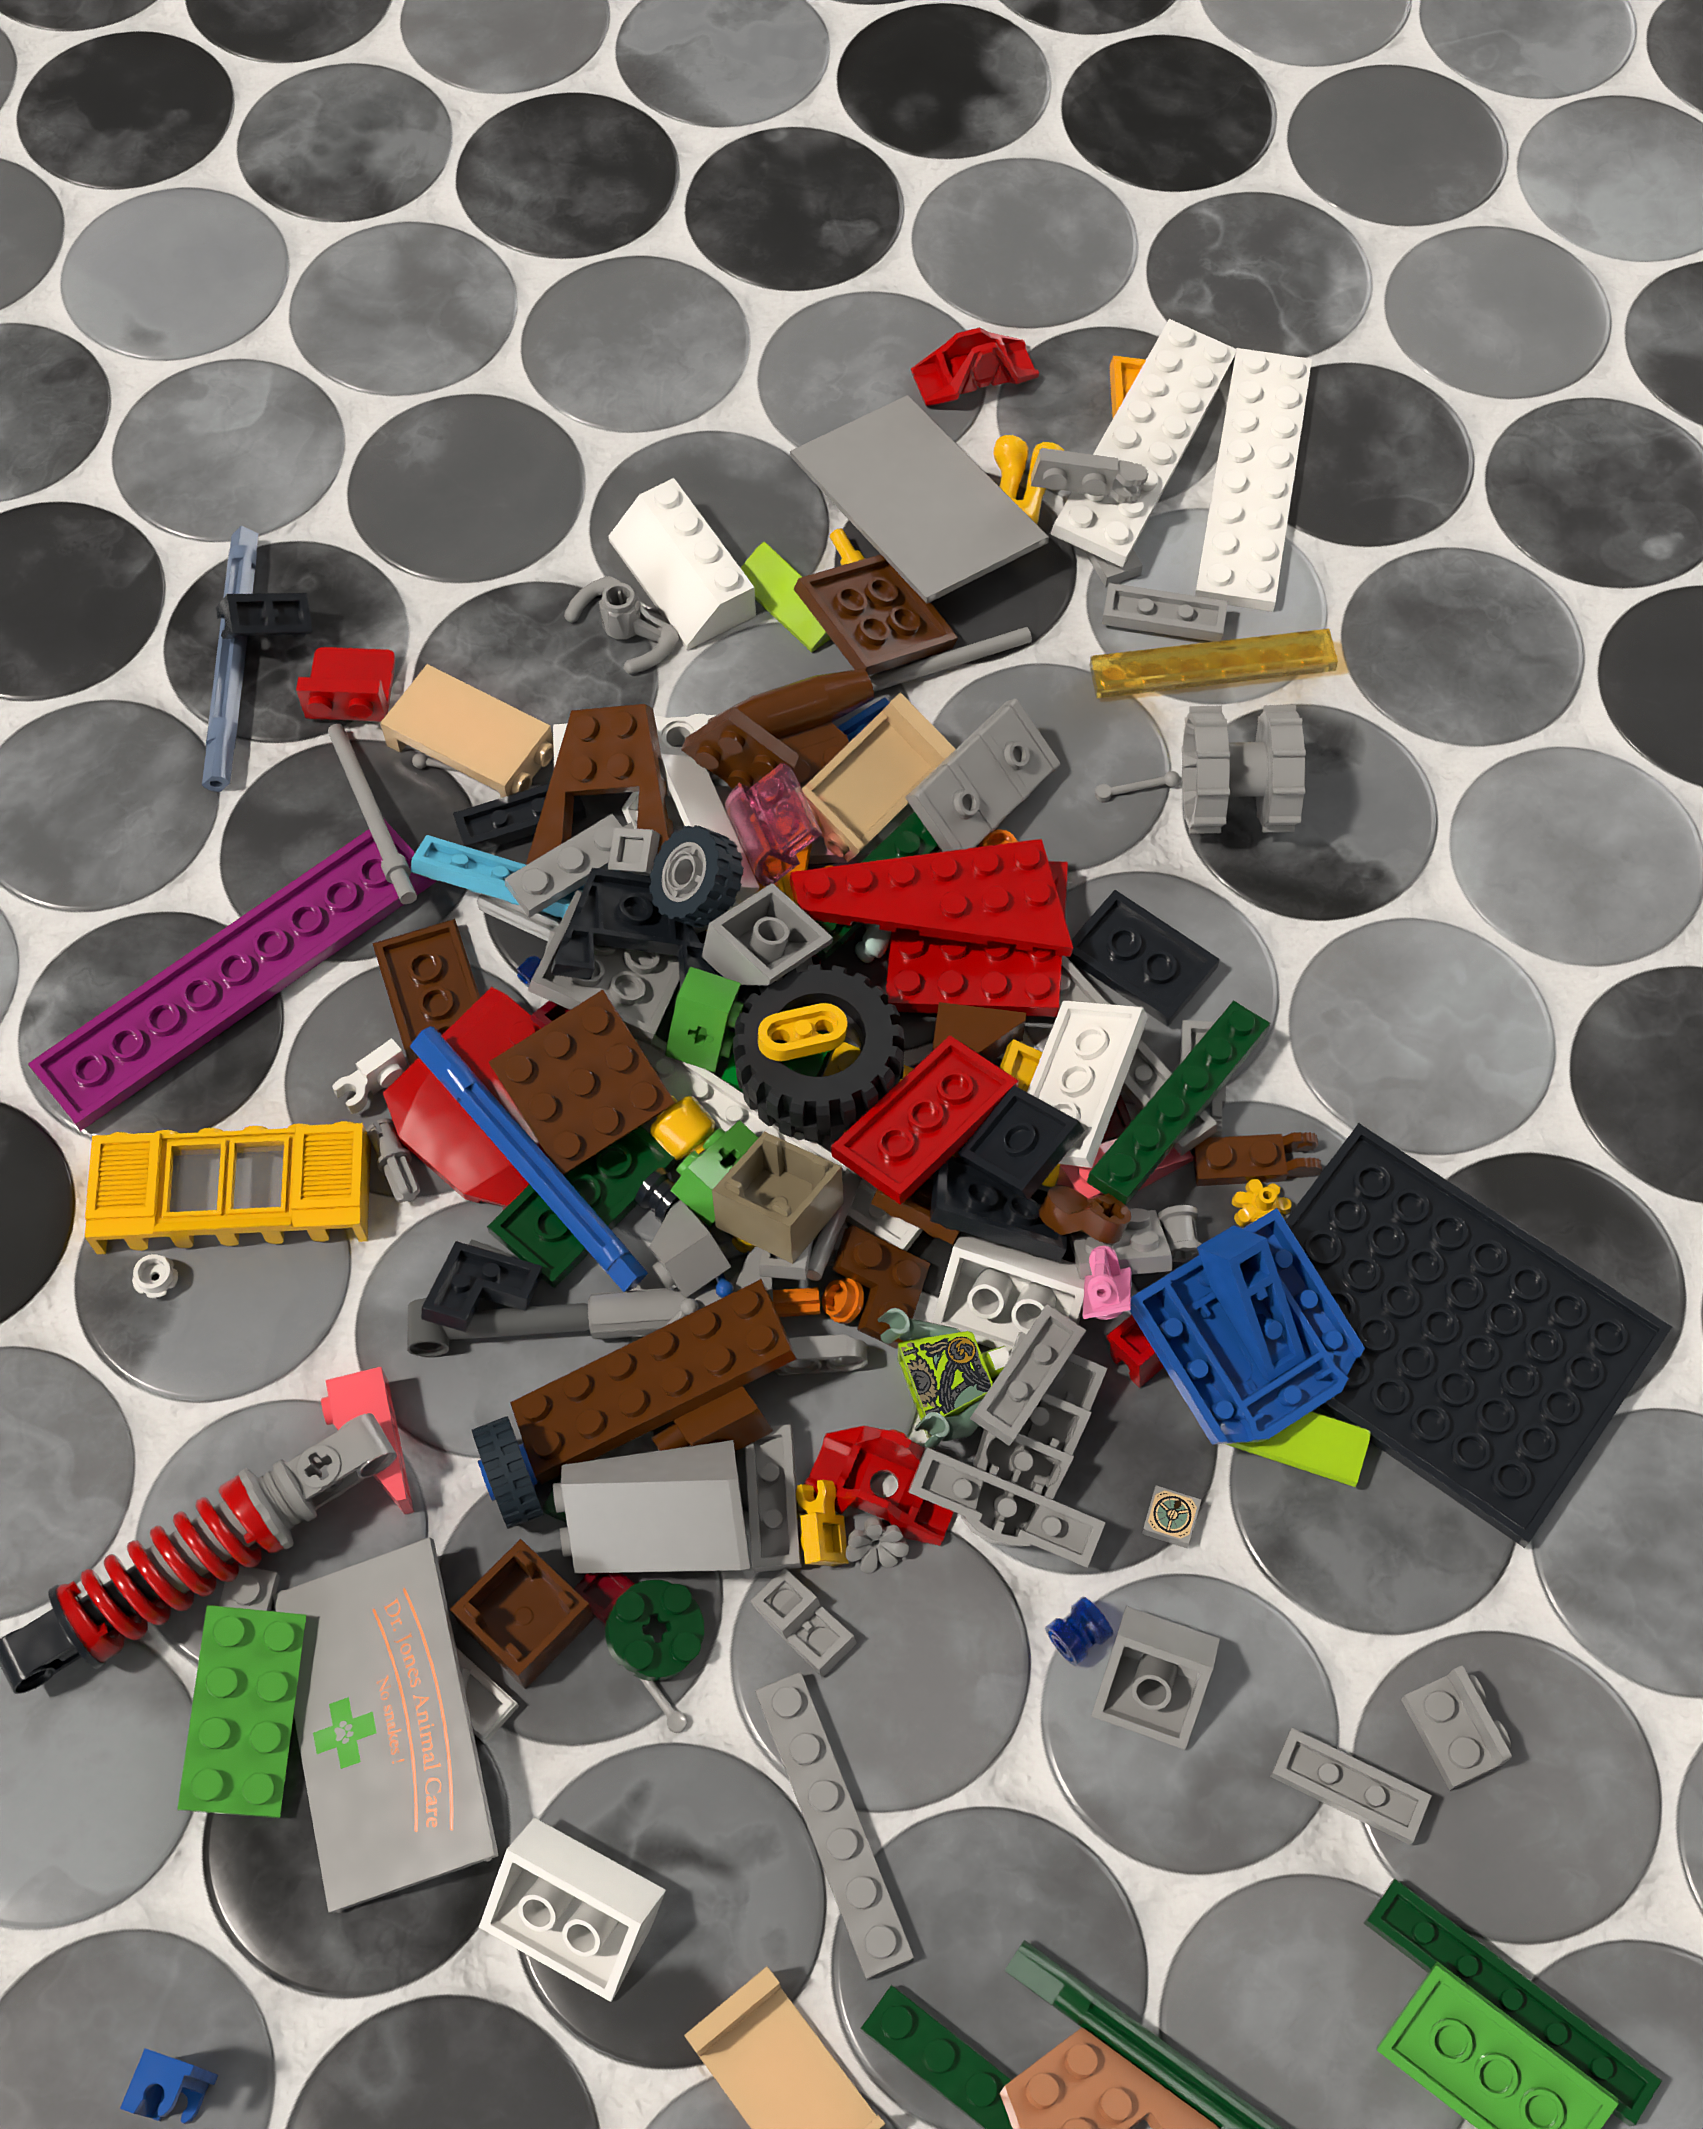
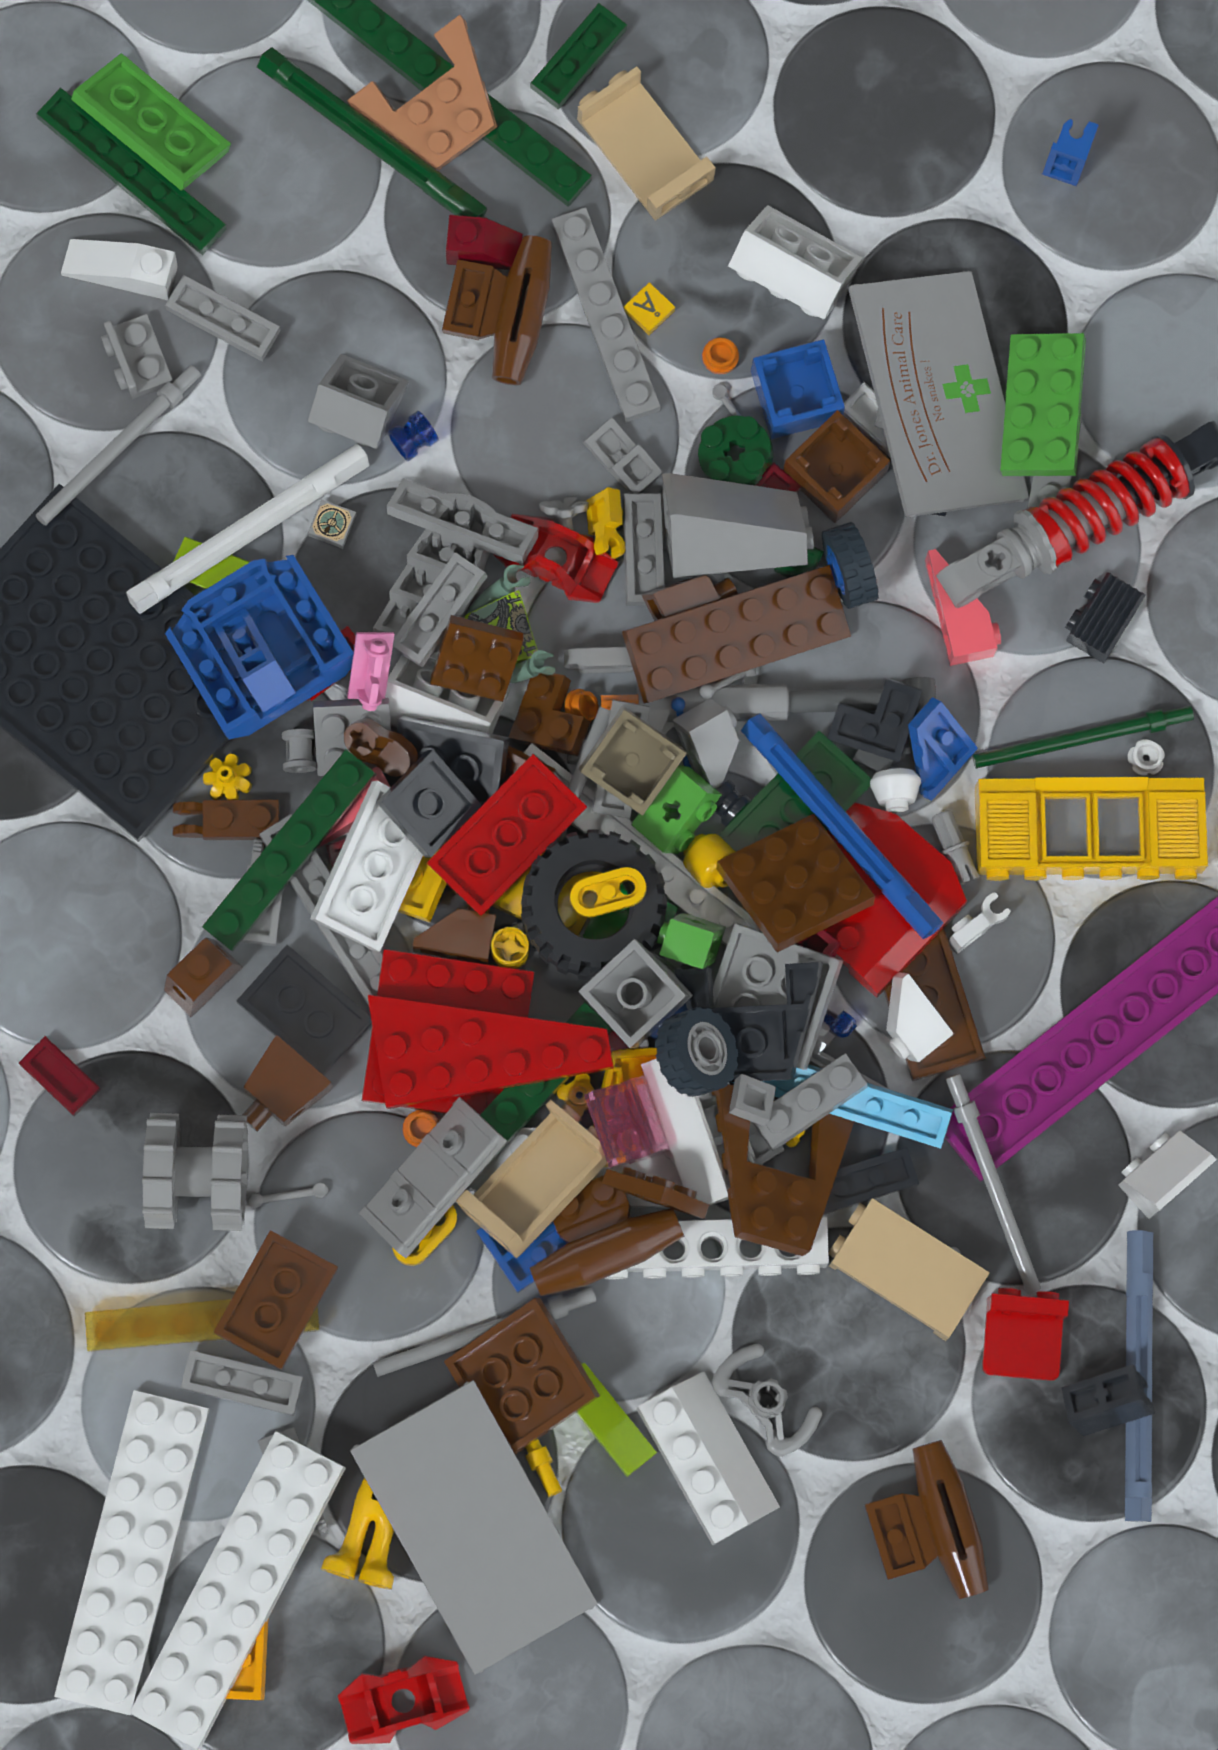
camera: 175 degrees right, 15 degrees up
(141, 1319) = (1153, 721): none -> dark green bar
(177, 823) = (1165, 1172): none -> white slope
(188, 1437) = (1105, 616): none -> black brick
(407, 1266) = (938, 747): none -> blue wing
(446, 522) = (934, 1524): none -> reddish brown plate
(449, 955) = (913, 1021): none -> white slope
(461, 1219) = (895, 788): none -> white cone
(571, 1718) = (796, 388): none -> blue container
(675, 1769) = (720, 355): none -> orange plate
(773, 1833) = (649, 308): none -> yellow tile
(914, 1018) = (510, 941): none -> yellow wheel
(973, 1819) = (504, 307): none -> reddish brown plate
(975, 1323) = (476, 658): none -> reddish brown plate
(1006, 1911) = (481, 242): none -> dark red slope
(1088, 474) = (302, 1505): light grey hinge -> none
(1139, 669) = (275, 1300): none -> reddish brown plate
(1156, 875) = (283, 1086): none -> reddish brown torso
(1266, 970) = (200, 975): none -> reddish brown torso
(1277, 1492) = (248, 528): none -> white piece
(1403, 887) = (59, 1076): none -> dark red tile
(1406, 1673) = (167, 397): none -> light grey bar
(1499, 1853) = (122, 266): none -> white slope

